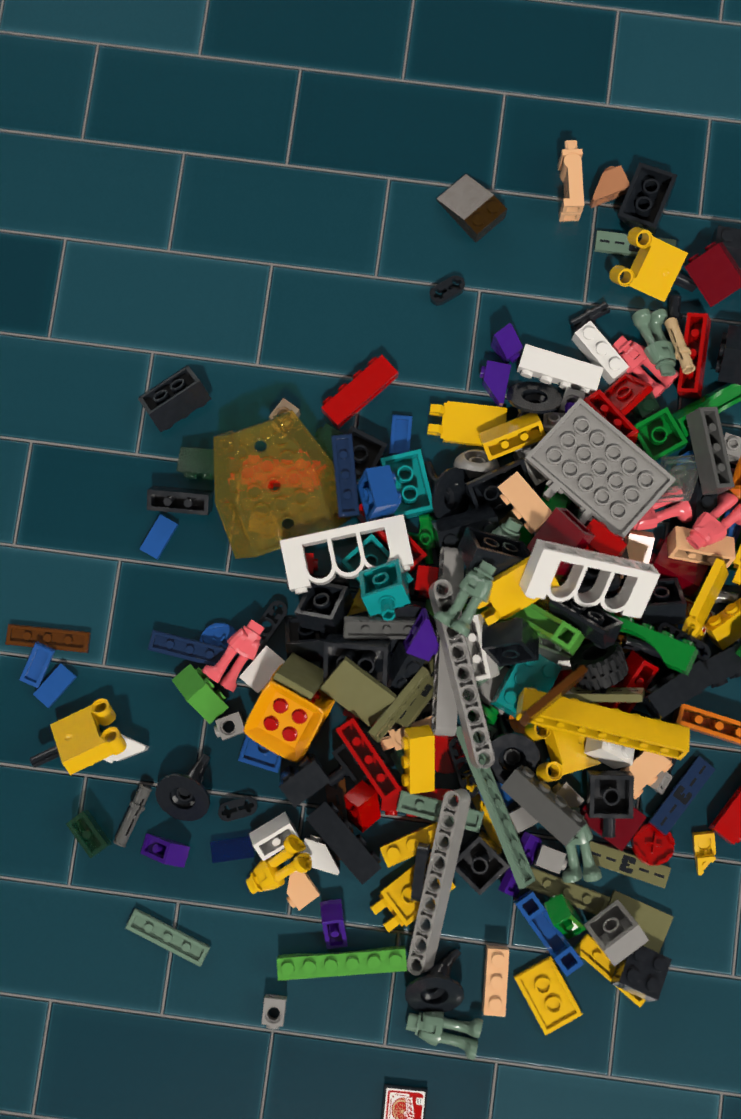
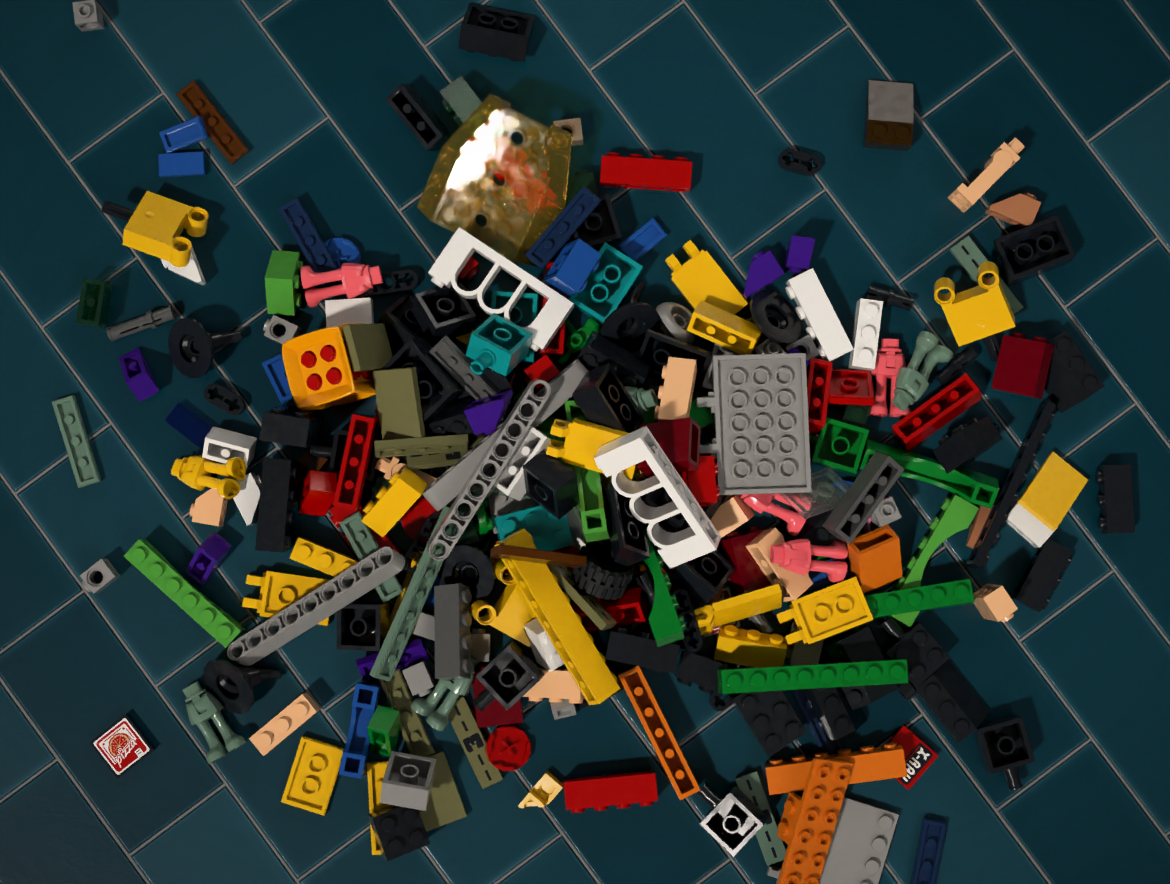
camera: 45 degrees right, 5 degrees up
(159, 537) = (375, 129): blue tile -> none
(420, 871) = (310, 584): black beam -> none
(476, 585) = (566, 415): sand green piece -> none
(681, 795) = (568, 734): dark blue tile -> none
(682, 352) = (927, 400): tan pin -> none

